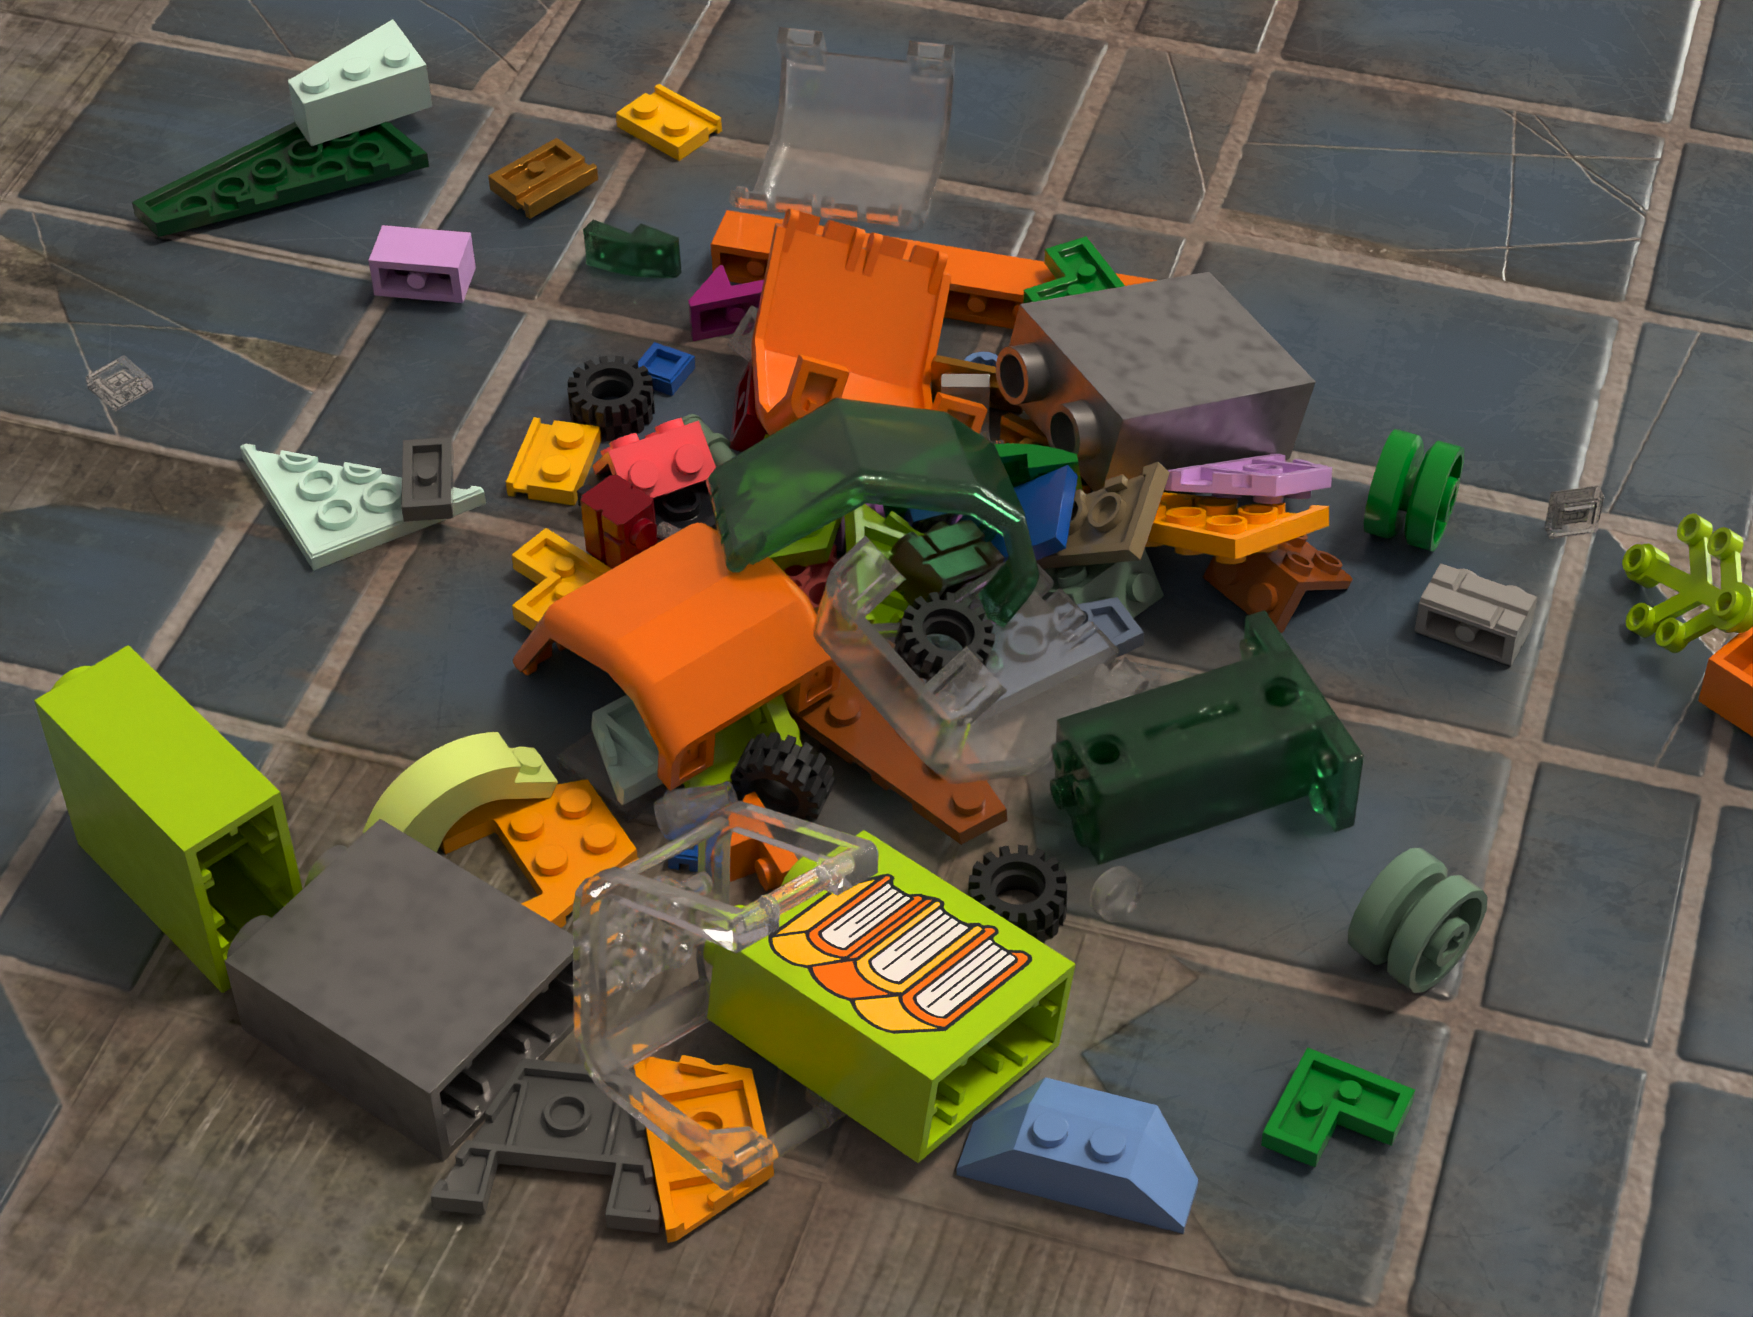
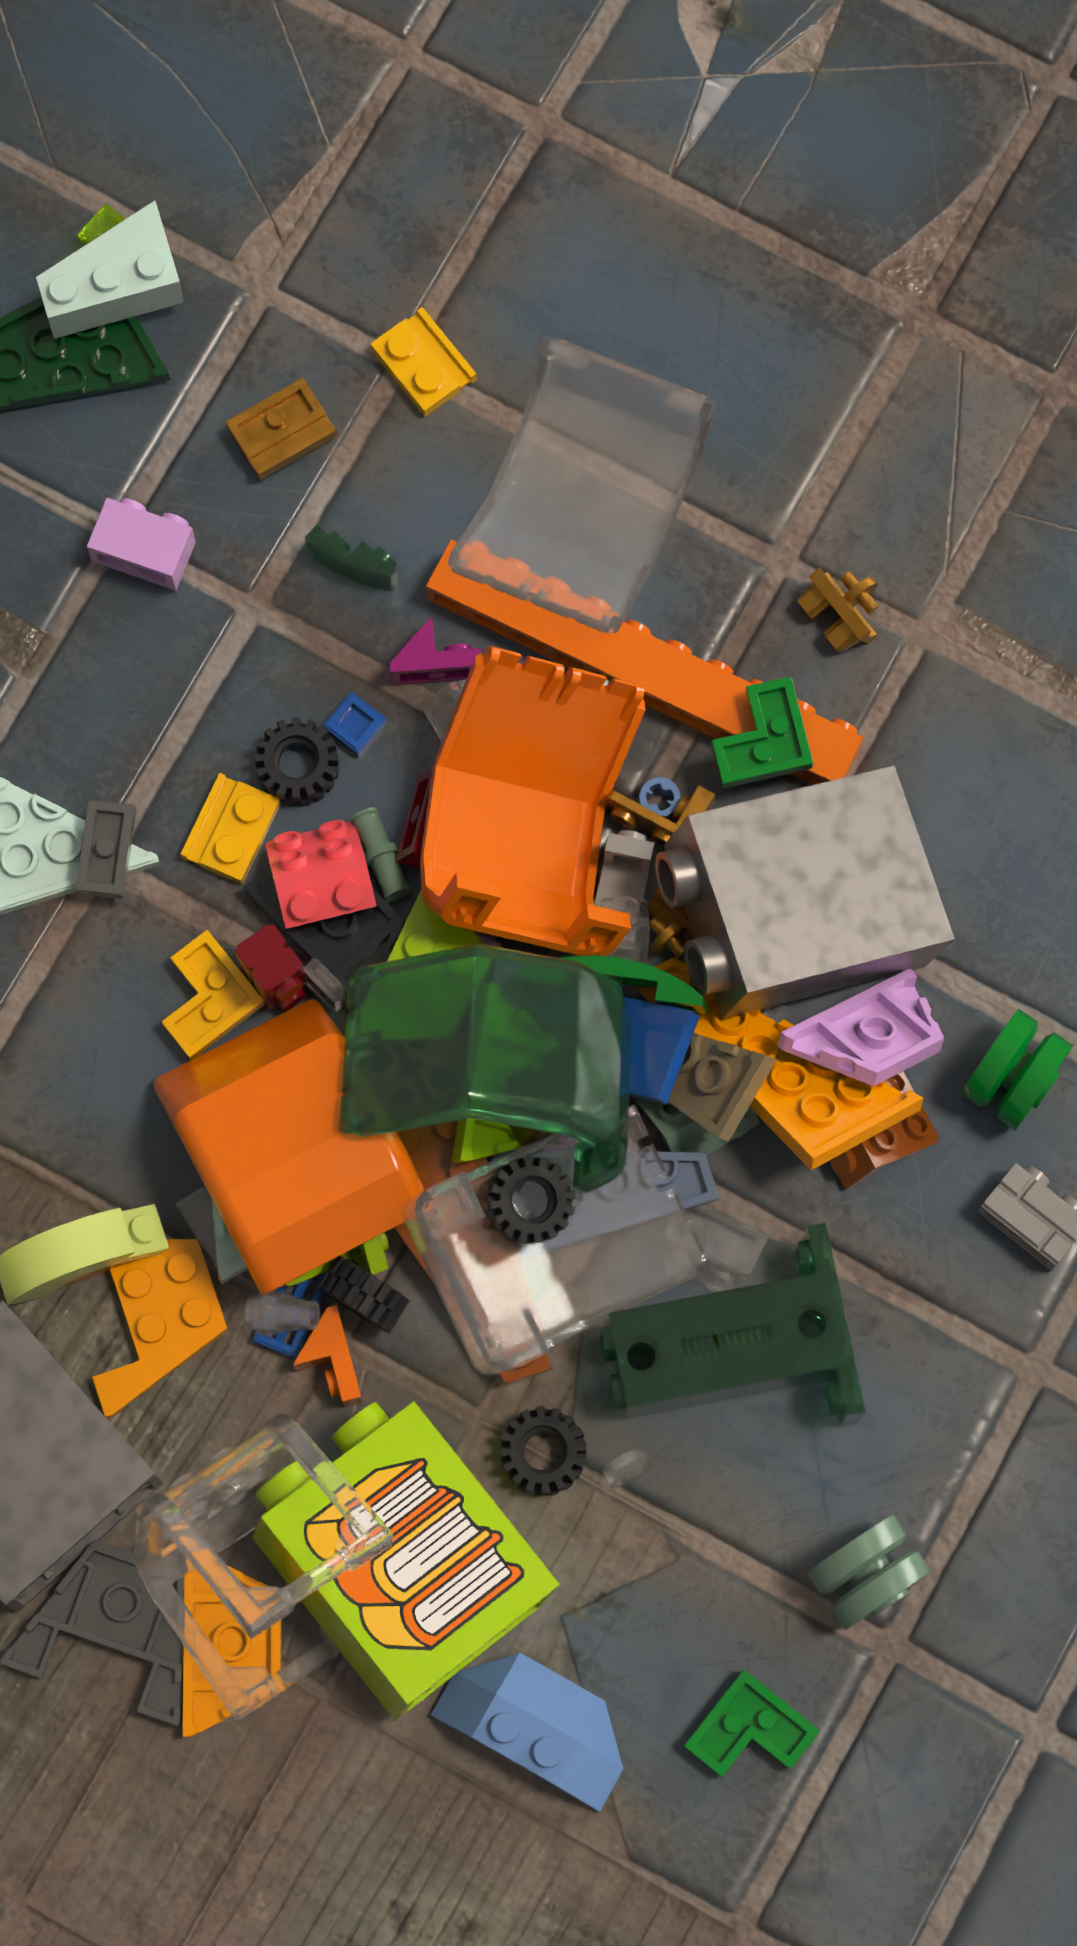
camera: 10 degrees right, 30 degrees up
(1119, 206) = (826, 593): none -> pearl gold hips

